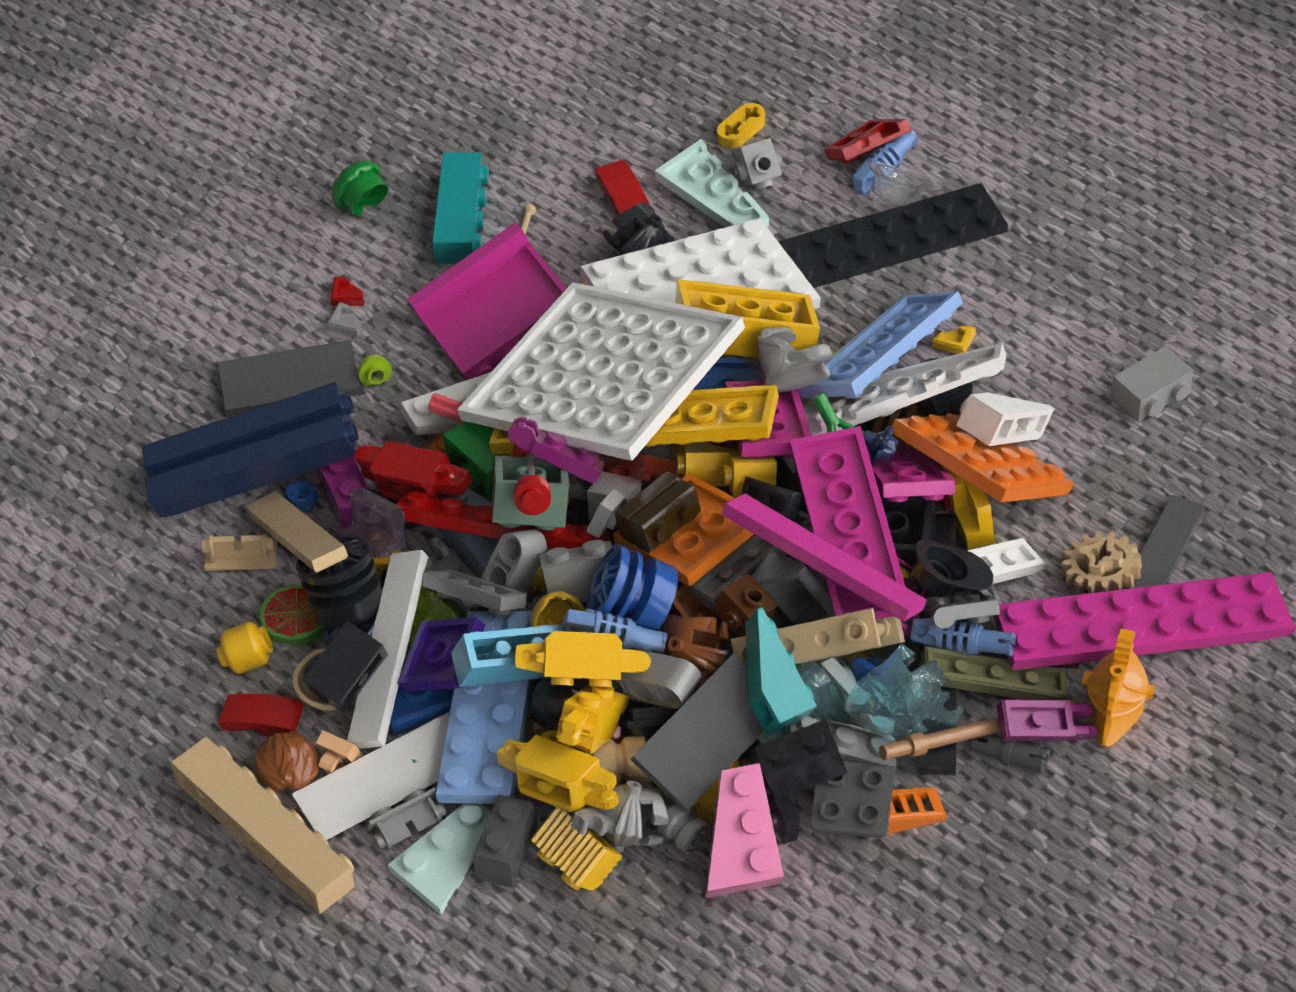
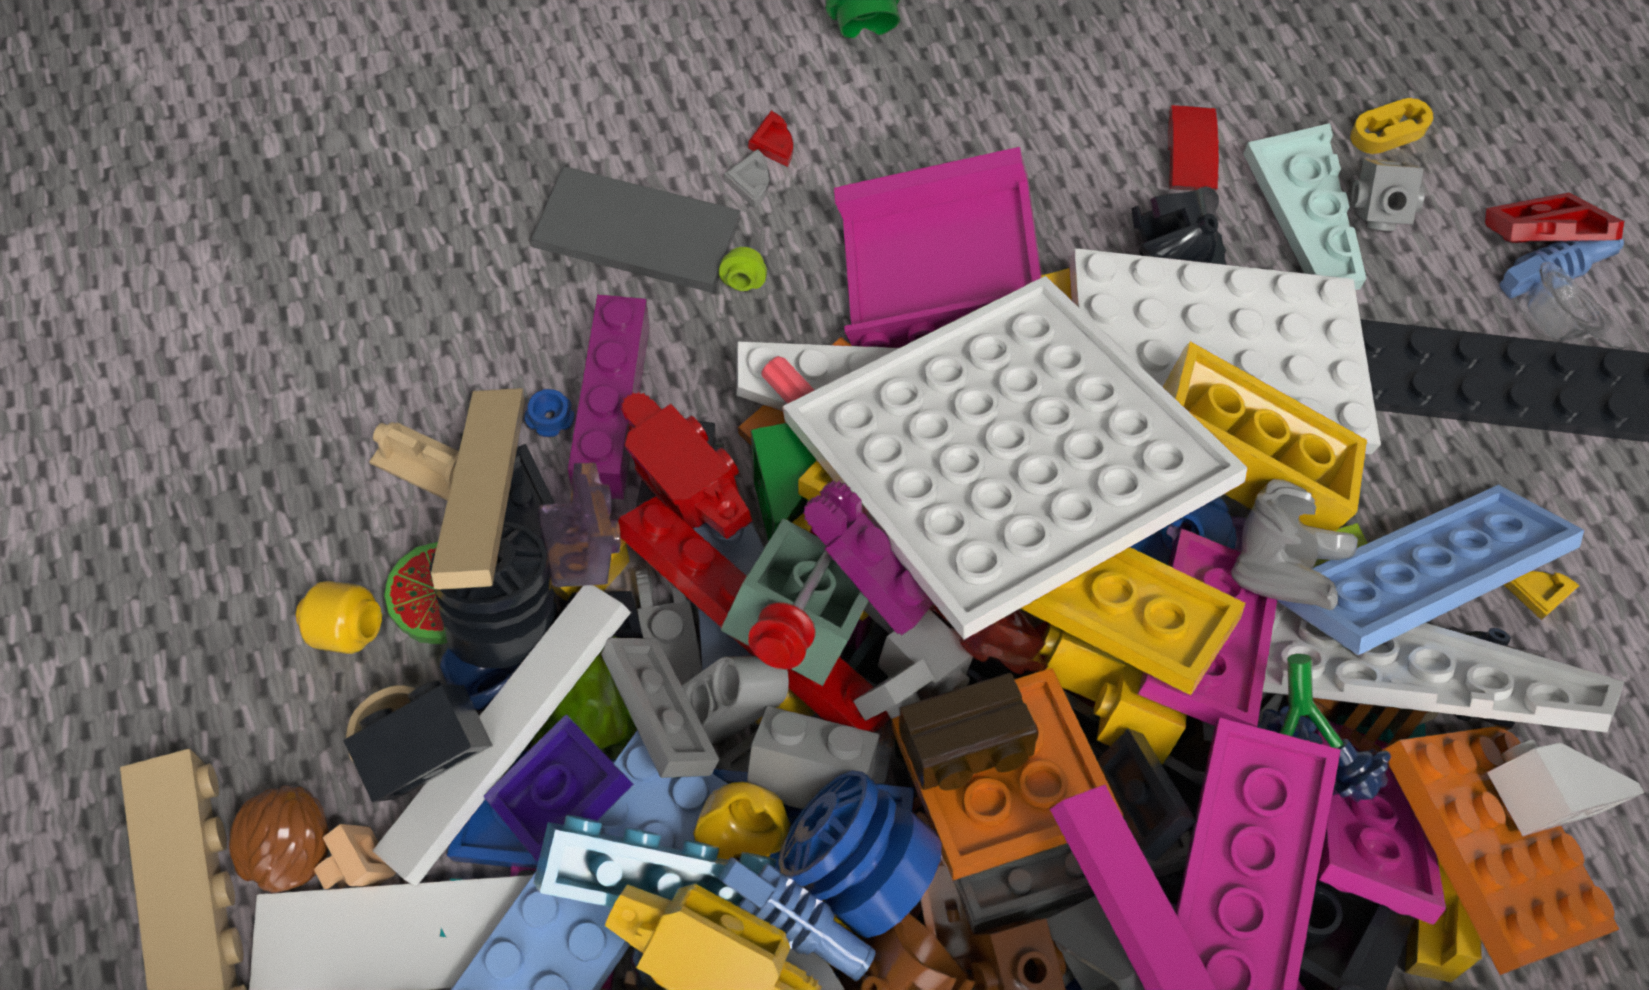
camera: 20 degrees right, 15 degrees up
(249, 450) = (508, 323): dark blue brick -> none
(261, 712) = (298, 734): red slope -> none
(459, 206) = (972, 85): teal brick -> none
(528, 210) = (1061, 125): tan hinge -> none

